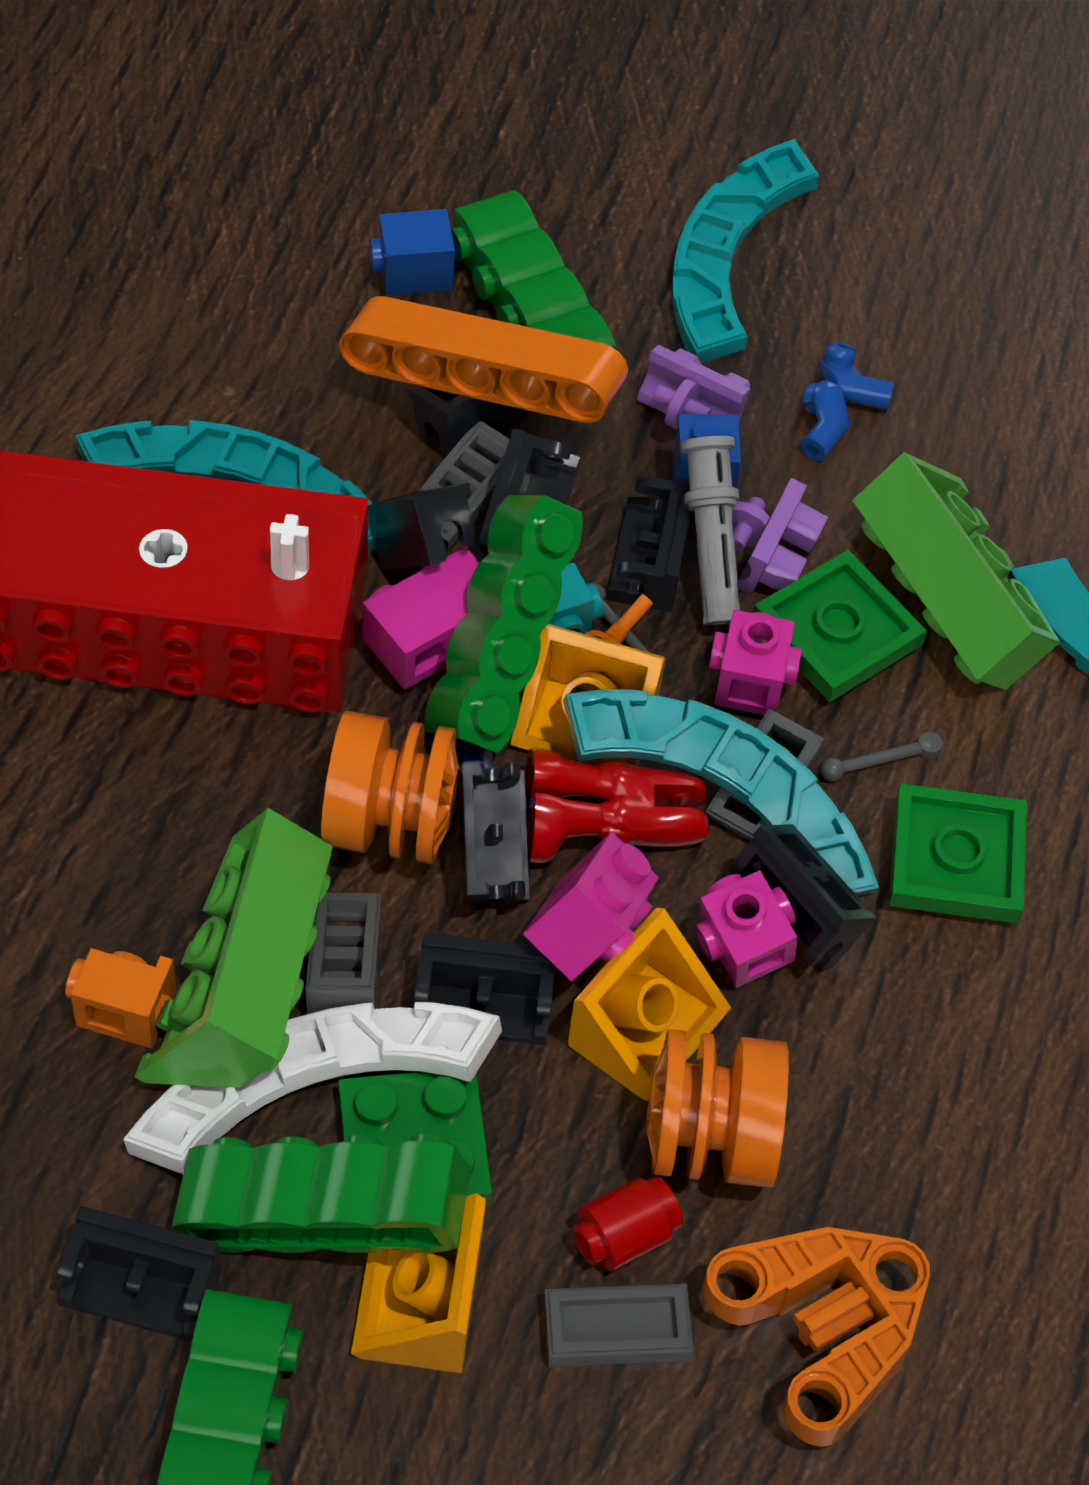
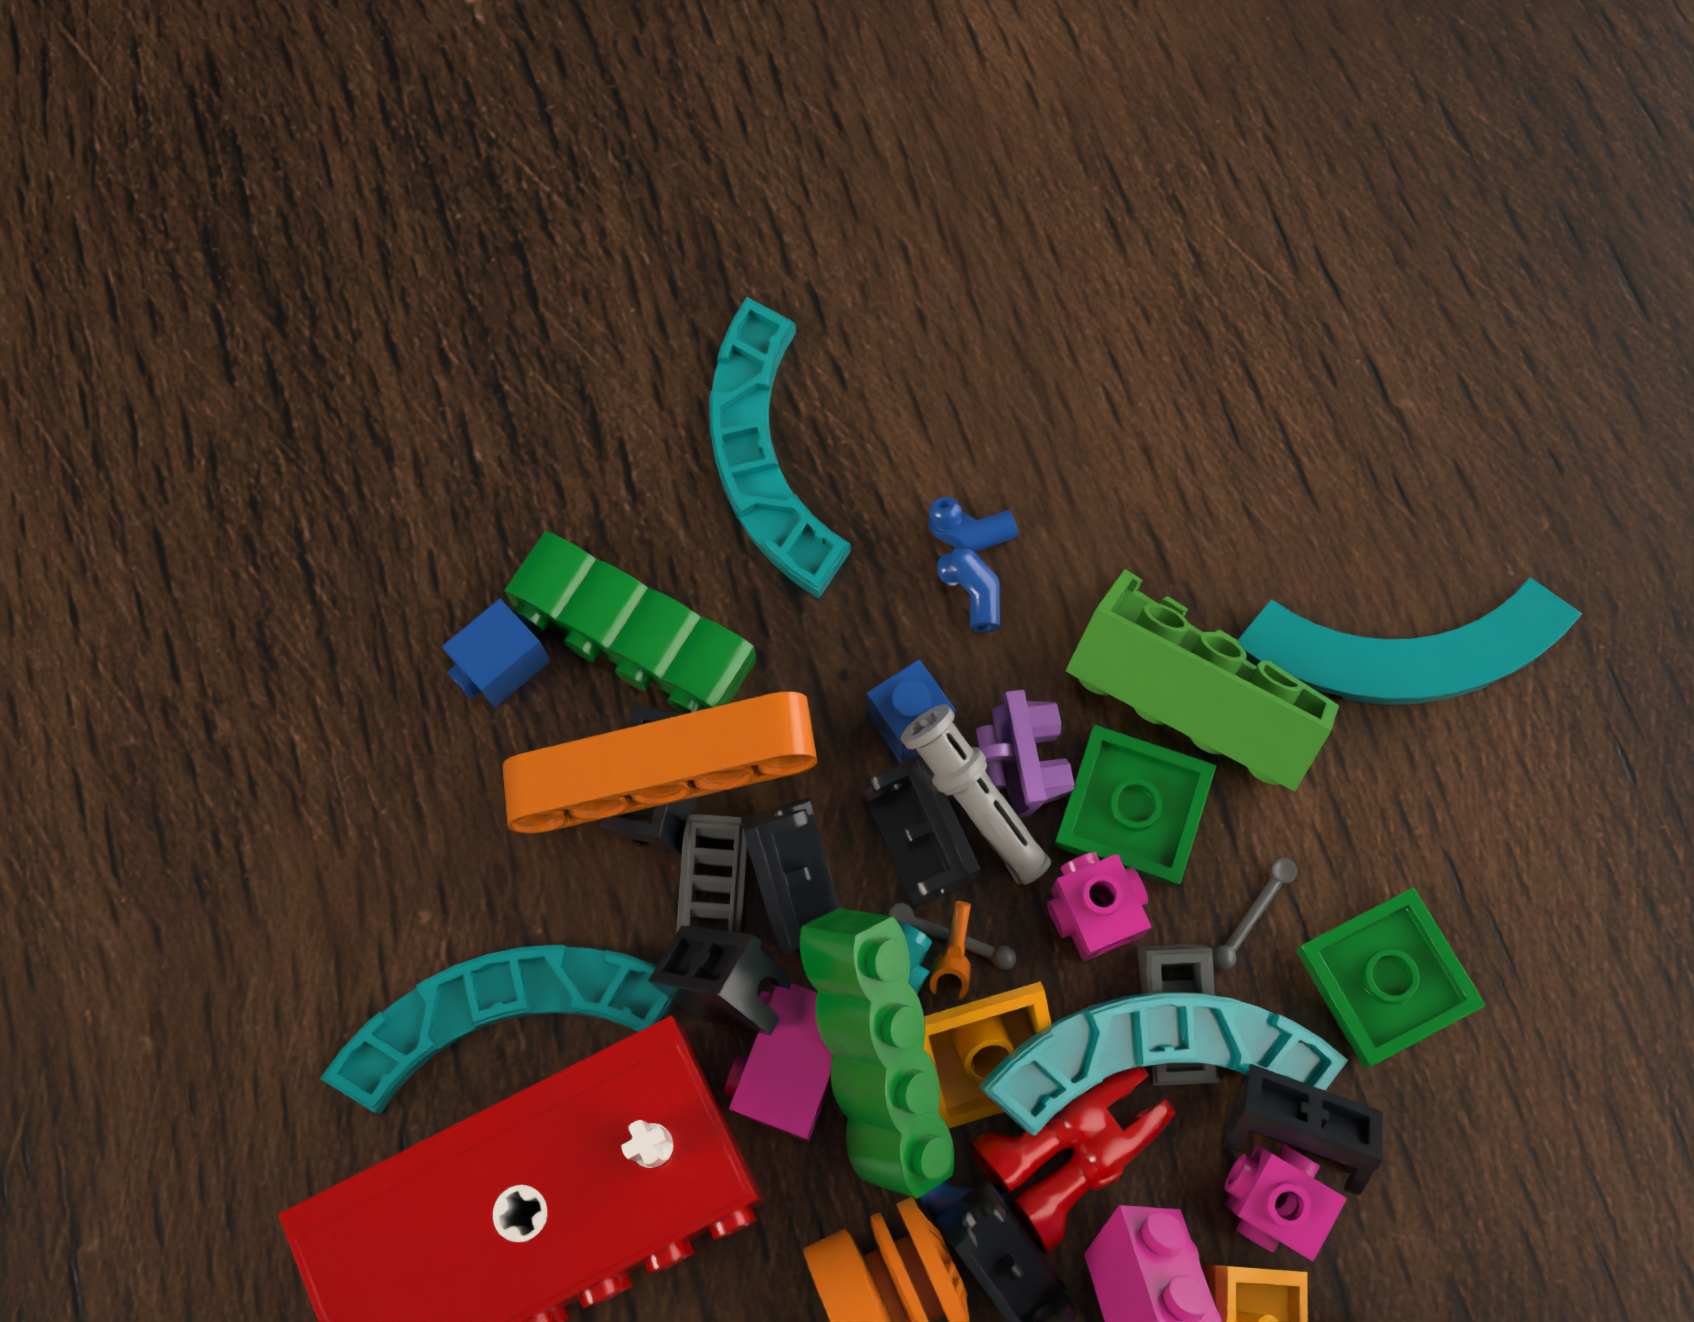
camera: 25 degrees left, 15 degrees up
(682, 385) = (849, 644): medium lavender hips -> none

